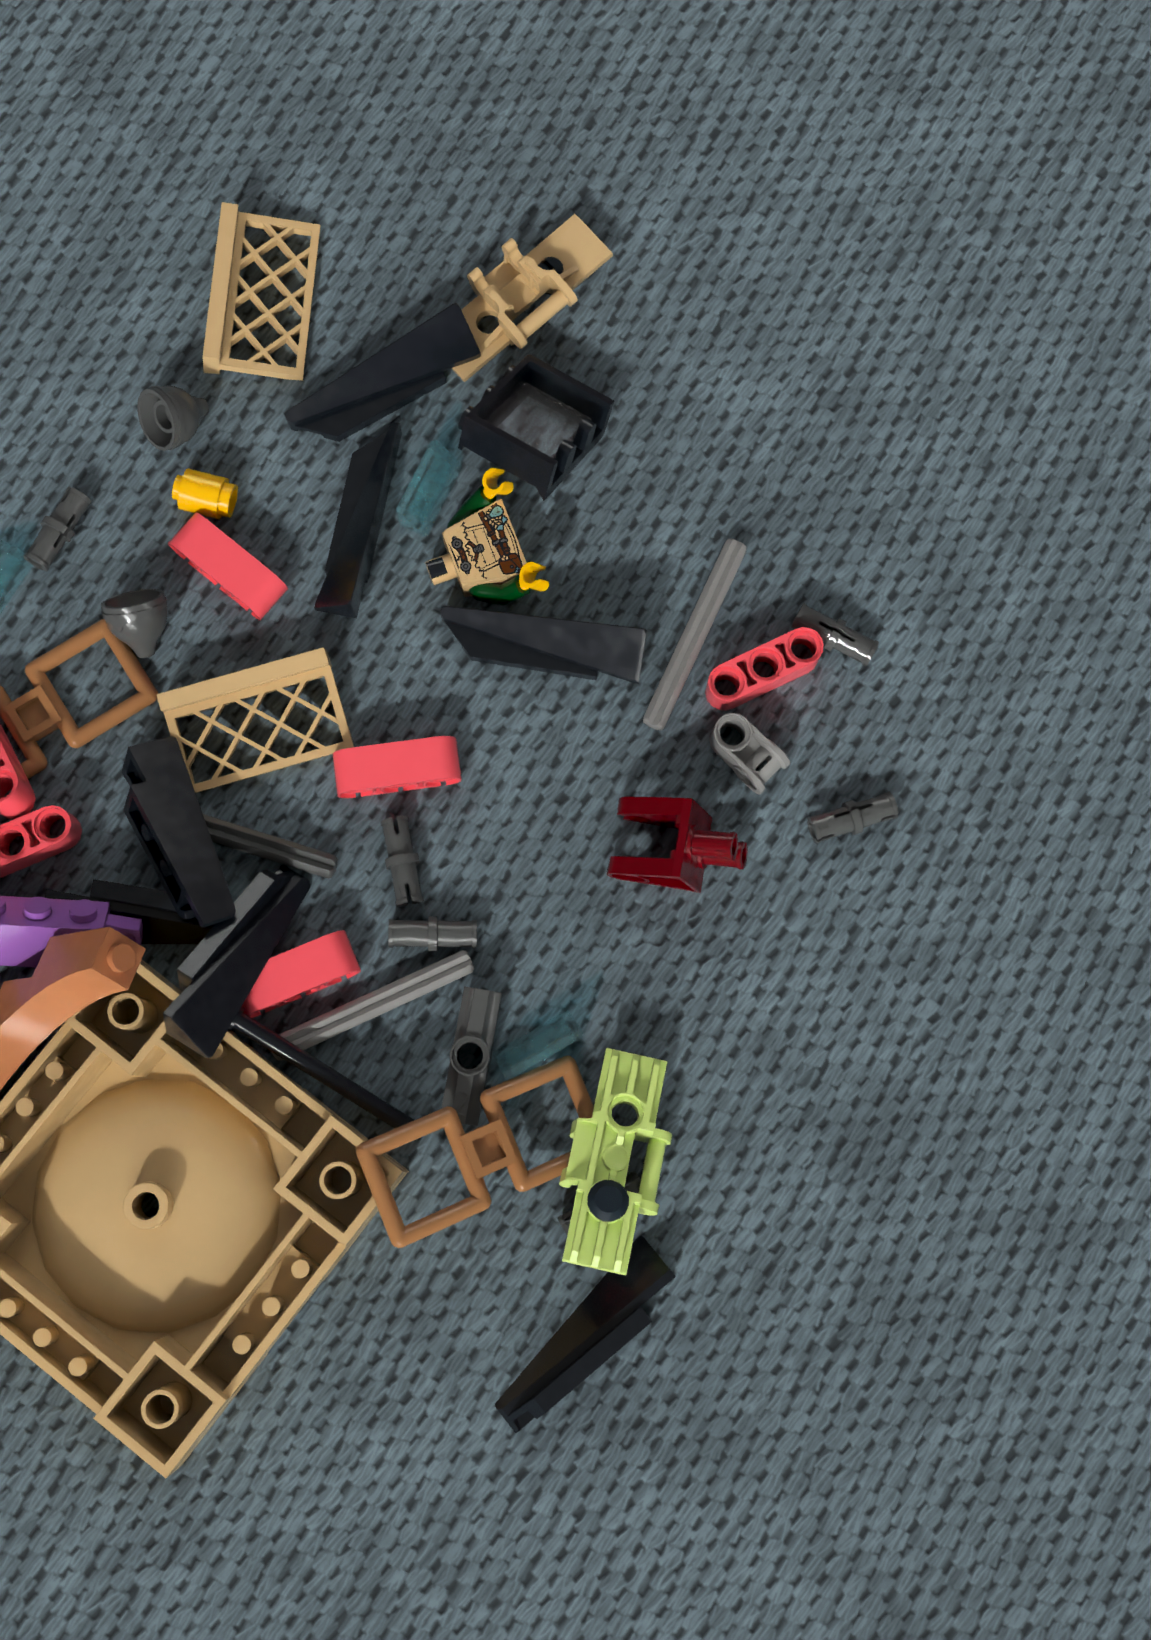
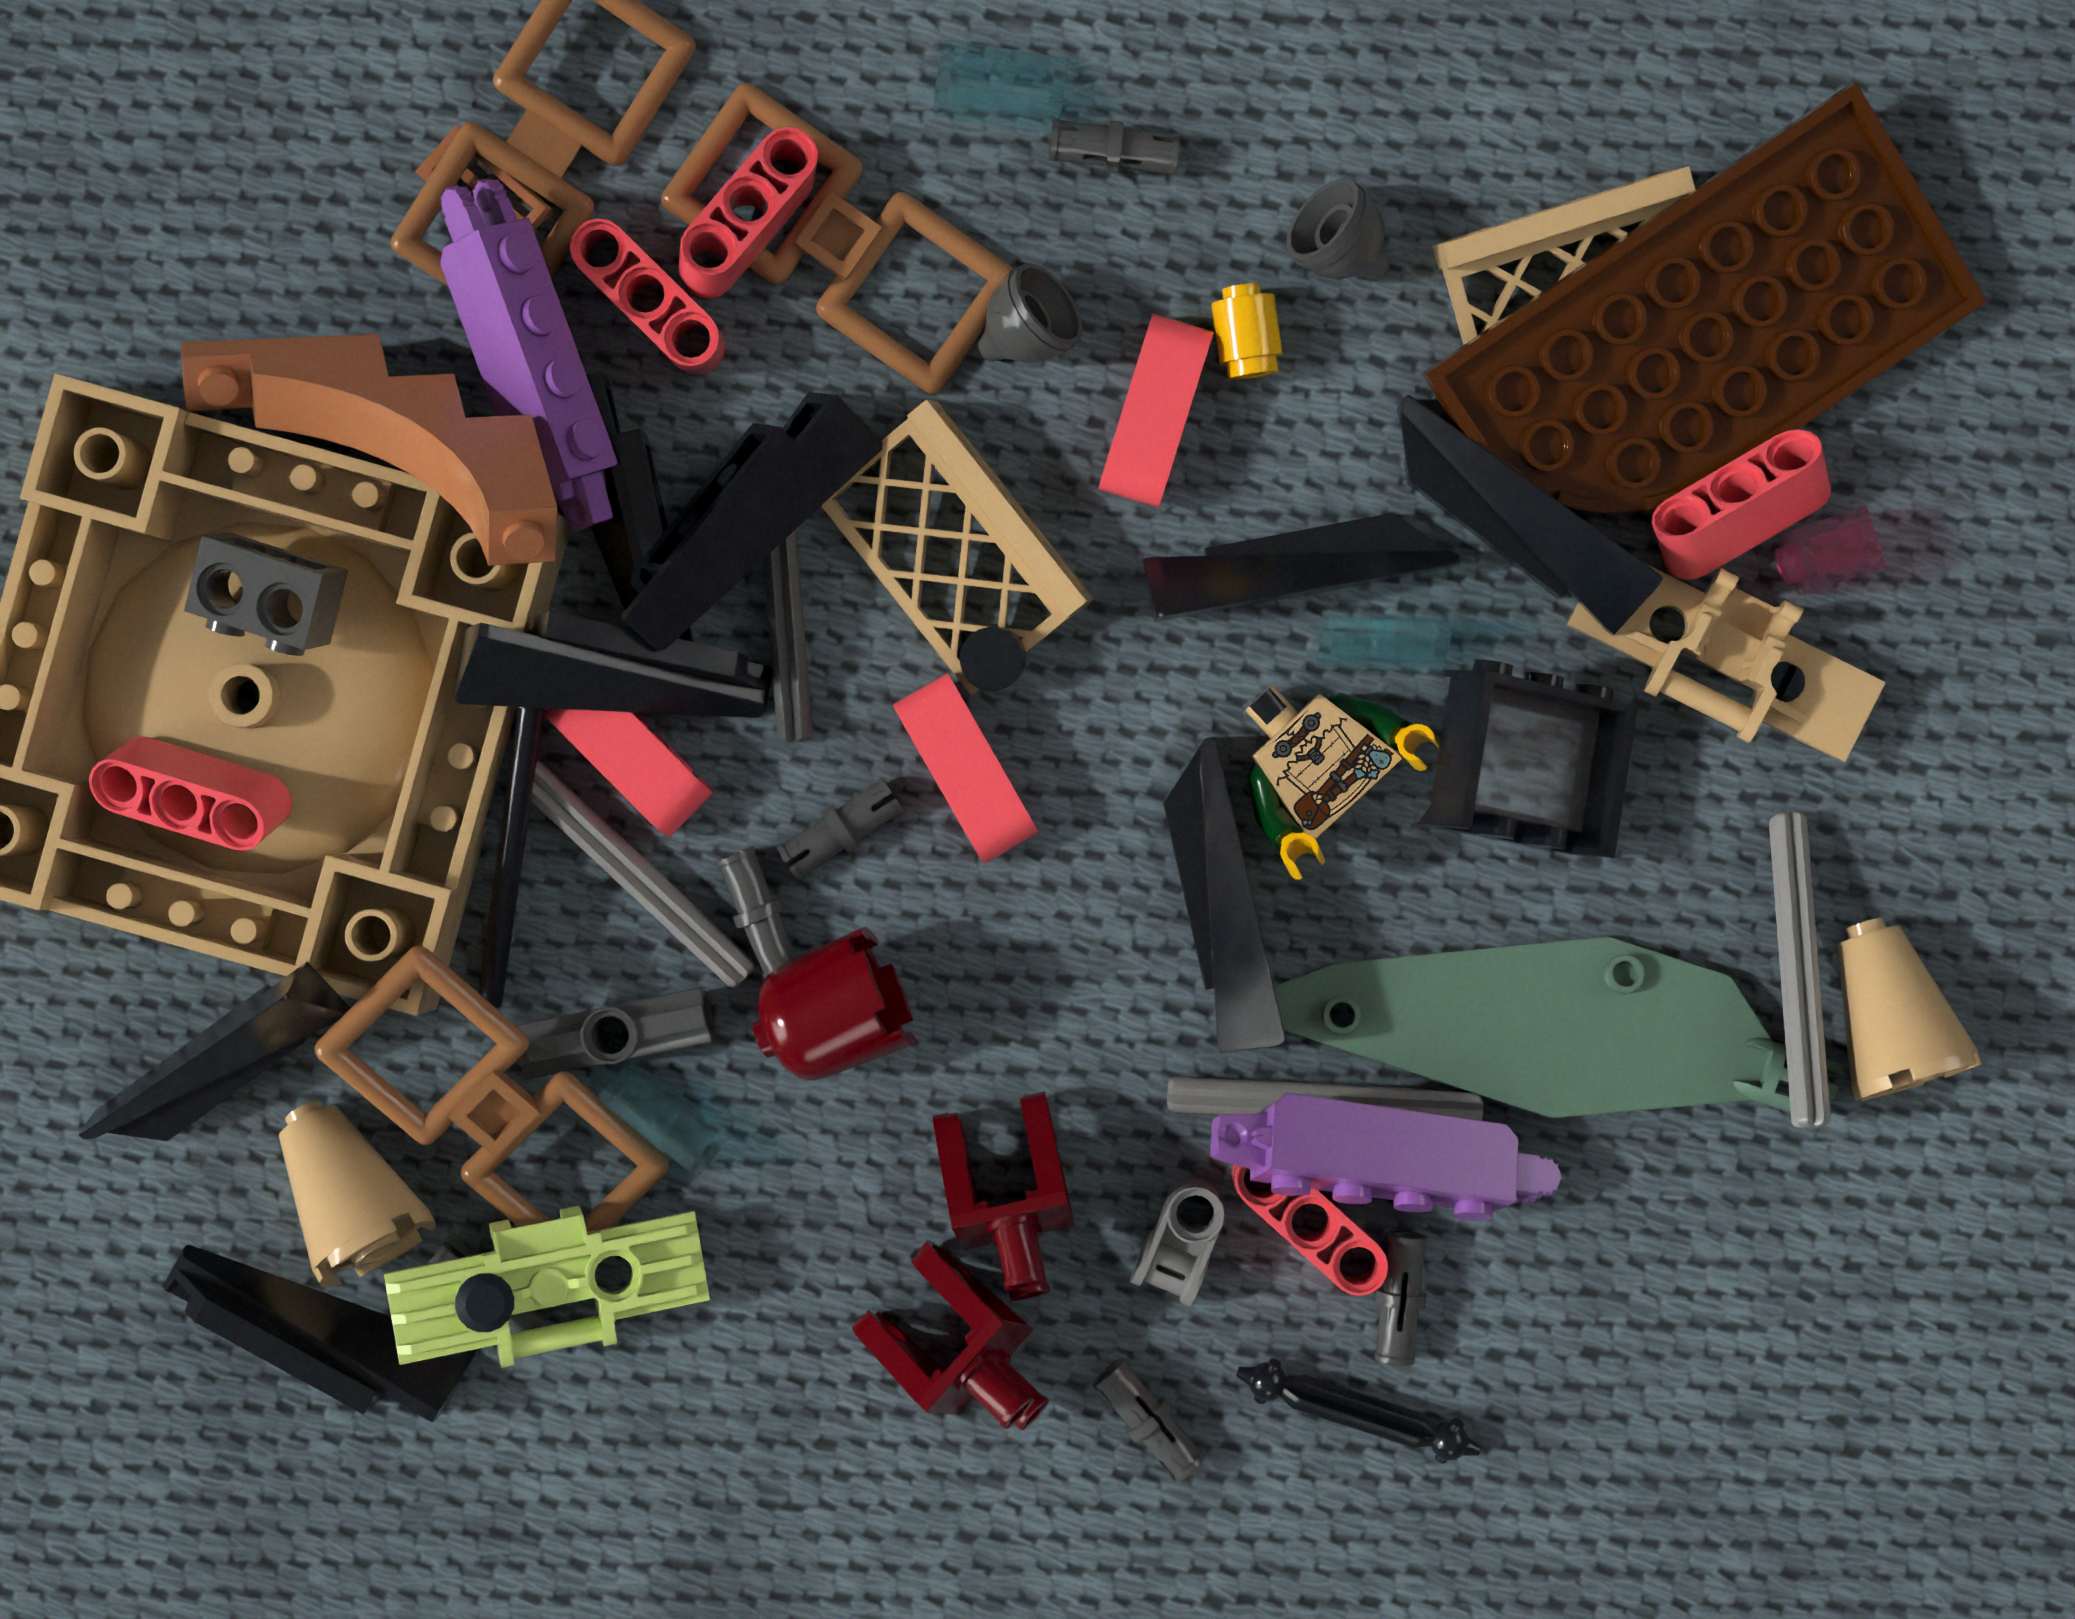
camera: 65 degrees right, 10 degrees up
(79, 1153) = (267, 580): none -> dark grey brick
(192, 1286) = (162, 798): none -> coral beam
(320, 226) = (1716, 320): none -> reddish brown plate
(335, 721) = (993, 658): none -> black tile
(378, 1321) = (221, 1059): none -> black wedge
(434, 251) = (1742, 504): none -> coral beam
(484, 215) = (1829, 551): none -> clear pink brick
(504, 1274) = (347, 1195): none -> tan cone
(512, 907) = (832, 1009): none -> dark red cylinder
(707, 476) = (1552, 1026): none -> sand green wing
(726, 323) = (1799, 971): none -> light grey axle
(740, 603) = (1384, 1155): none -> medium lavender hinge
(776, 280) = (1896, 1015): none -> tan cone
(778, 903) = (980, 1369): none -> dark red piece
(895, 688) = (1358, 1411): none -> black wheel

